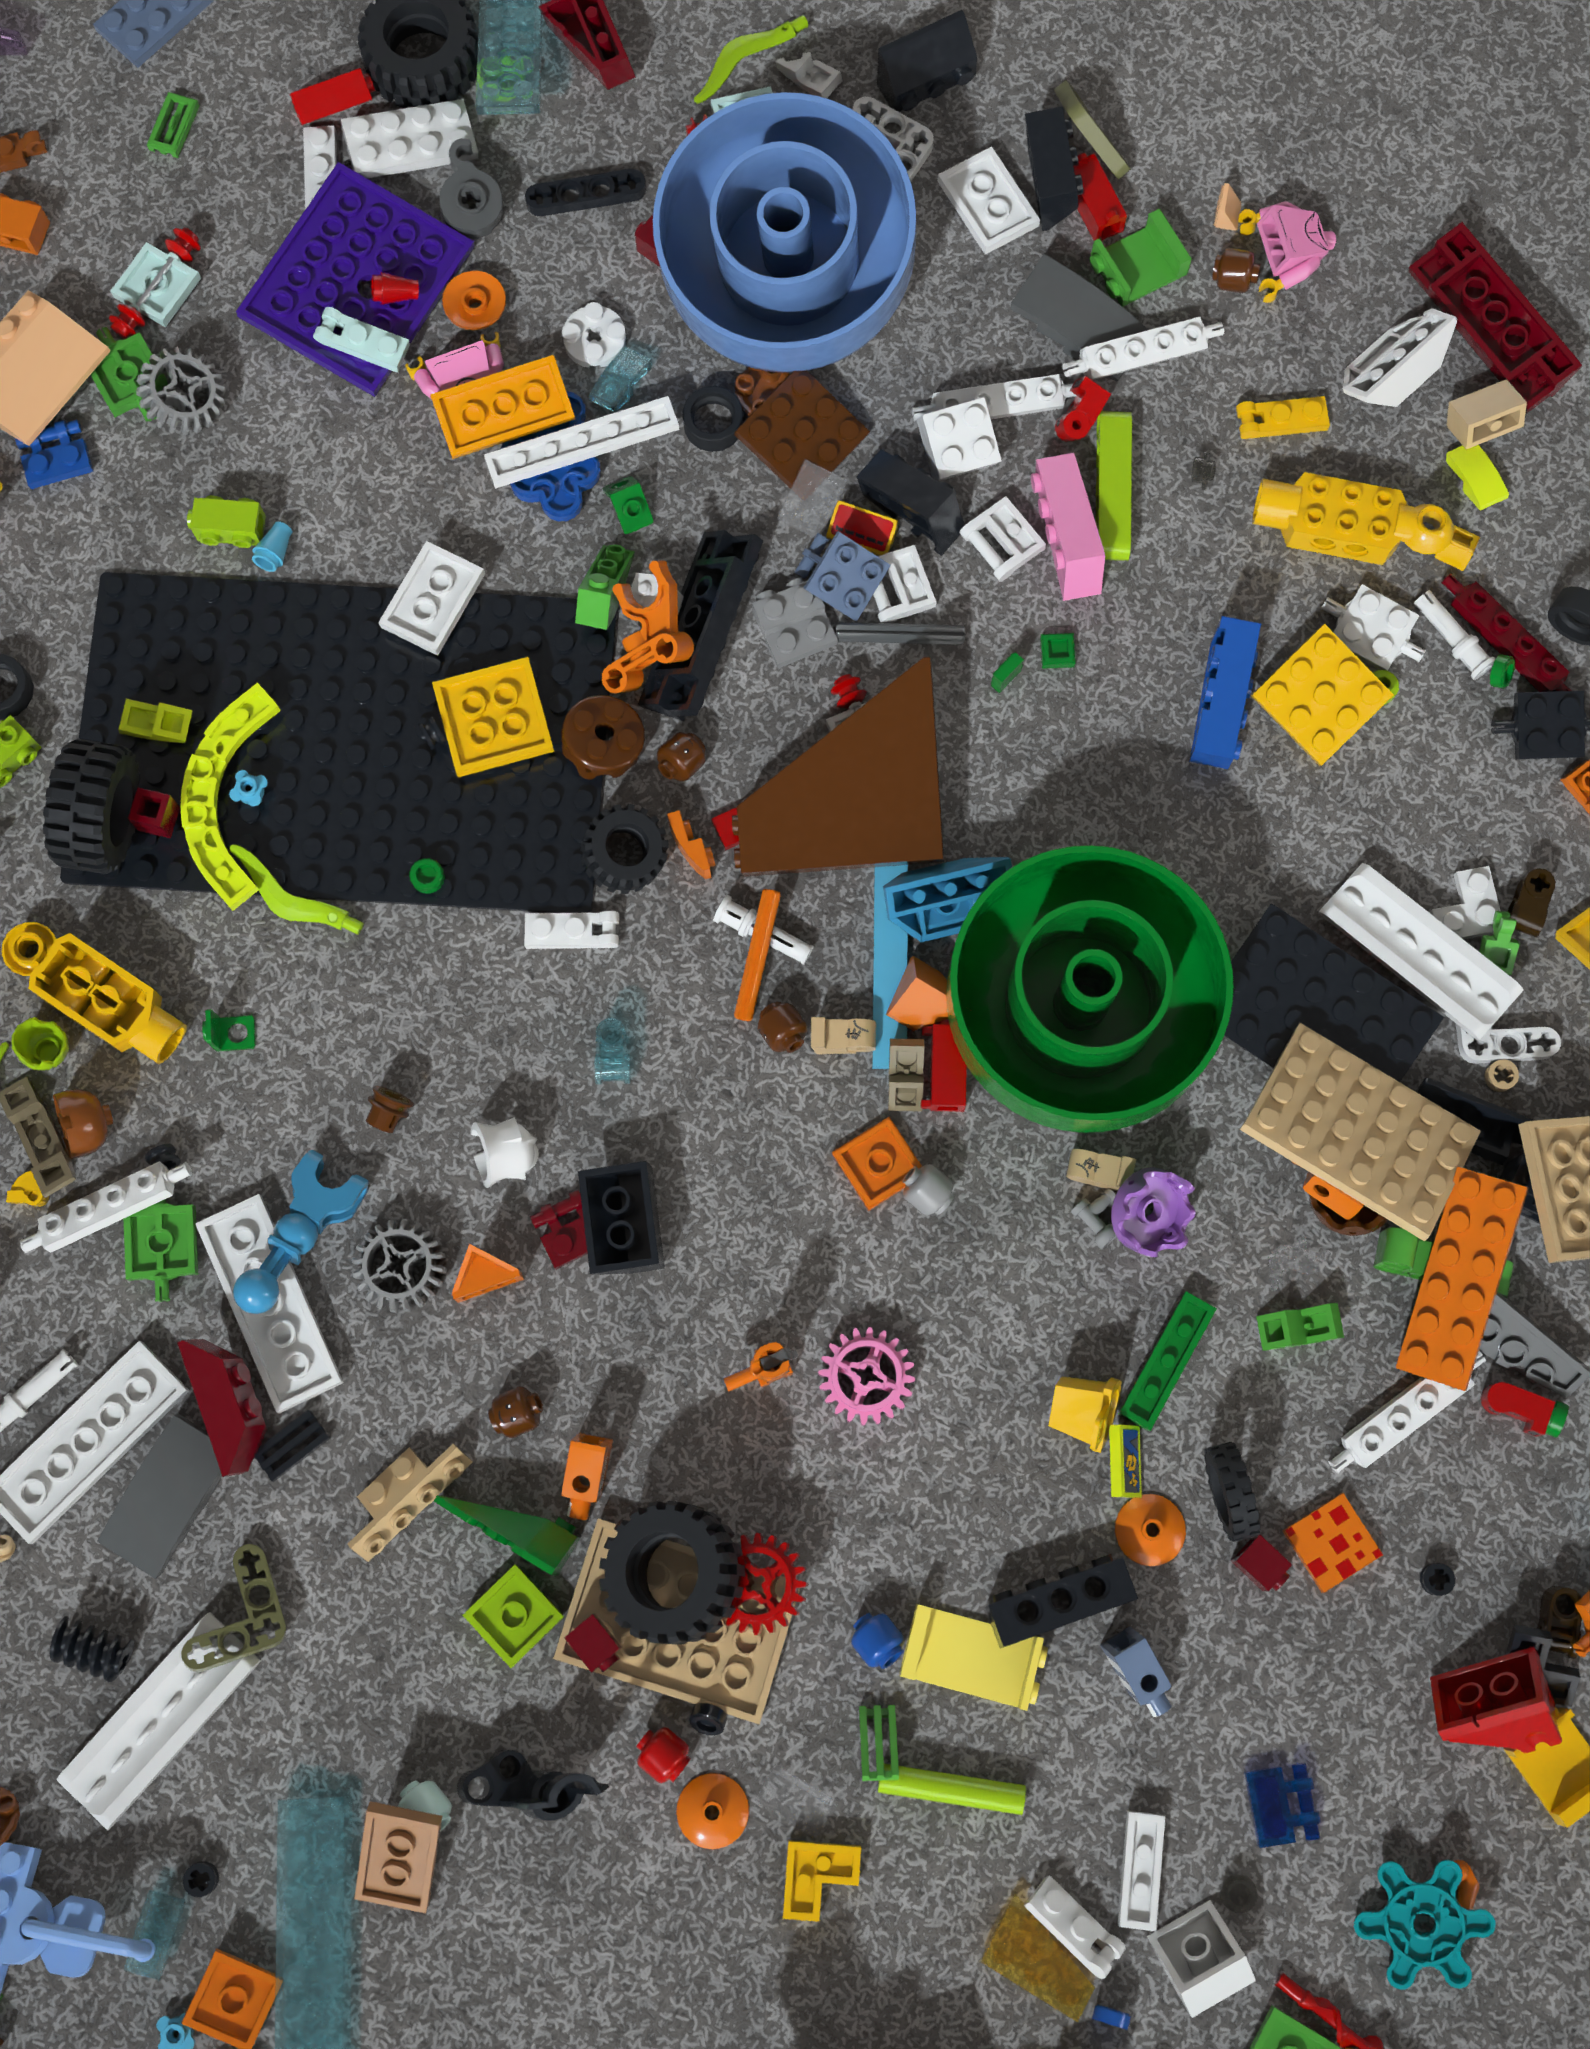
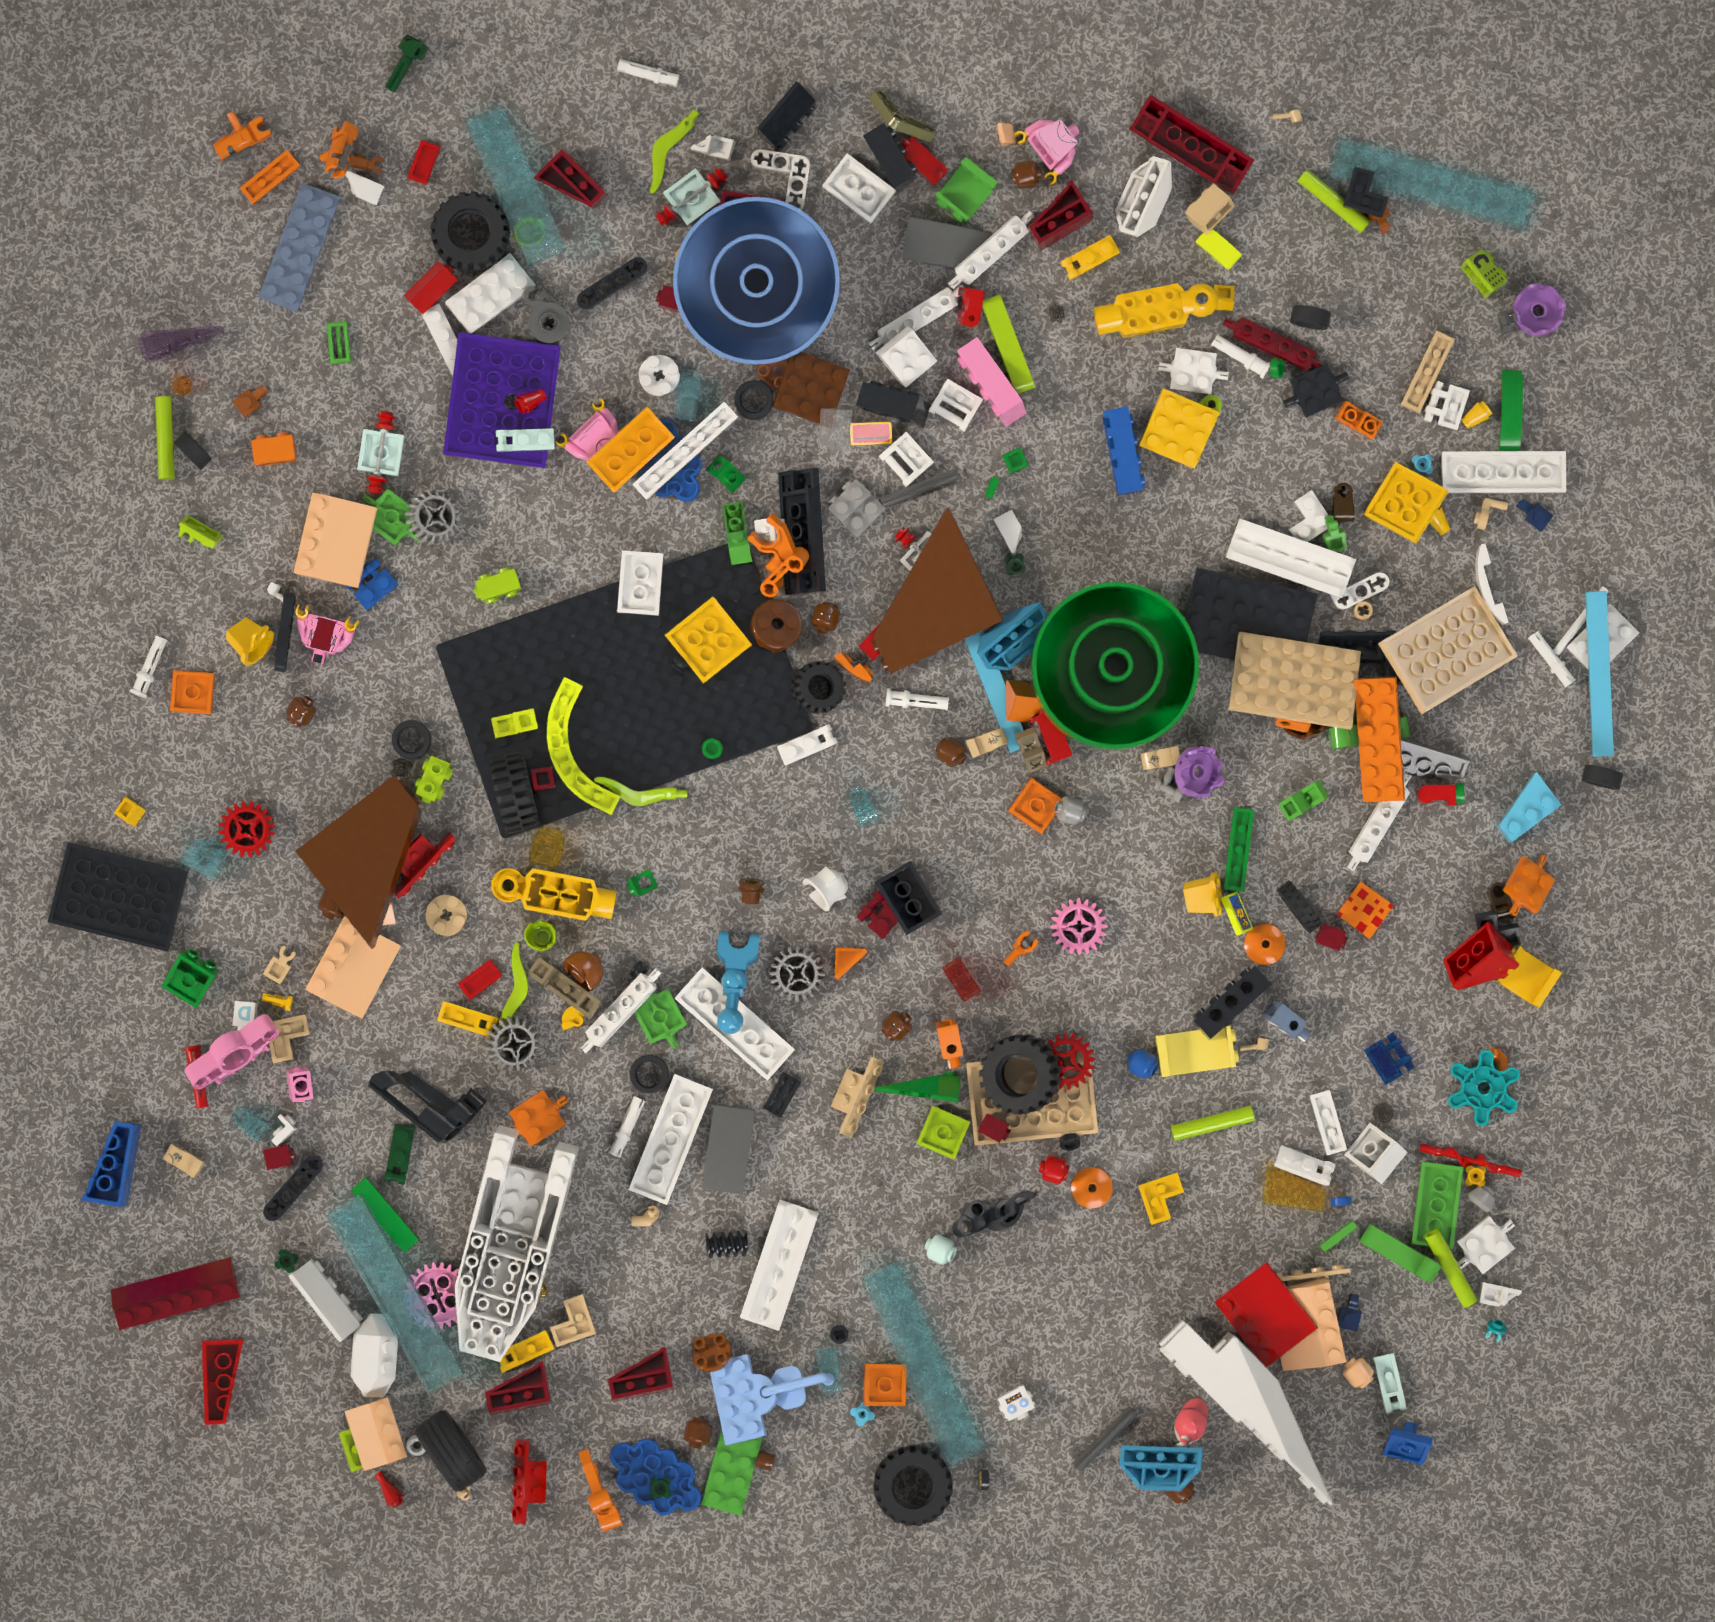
camera: 25 degrees left, 10 degrees up
(83, 1306) = (649, 1089): none -> black tyre
(114, 919) = (547, 848): none -> clear yellow piece
(226, 1403) = (740, 1085): dark red wedge -> none
(251, 797) = (591, 735): medium azure plate -> none
(257, 1617) = (806, 1190): olive beam -> none
(272, 547) = (530, 591): medium azure cone -> none
(398, 1857) = (939, 1278): medium nougat plate -> none
(469, 289) = (573, 374): orange dish -> none
(647, 1381) = (961, 979): none -> clear red brick
(757, 955) = (920, 718): orange axle -> none
(843, 575) = (874, 471): sand blue plate -> none
(878, 1713) = (1158, 1101): bright green tile -> none
(988, 801) = (1019, 568): none -> dark green plate
(1008, 742) = (1010, 530): none -> white slope
(1083, 1691) = (1262, 1044): none -> tan hand
(1264, 343) = (1061, 217): none -> dark red wedge
(1445, 1587) = (1433, 908): black bush -> none

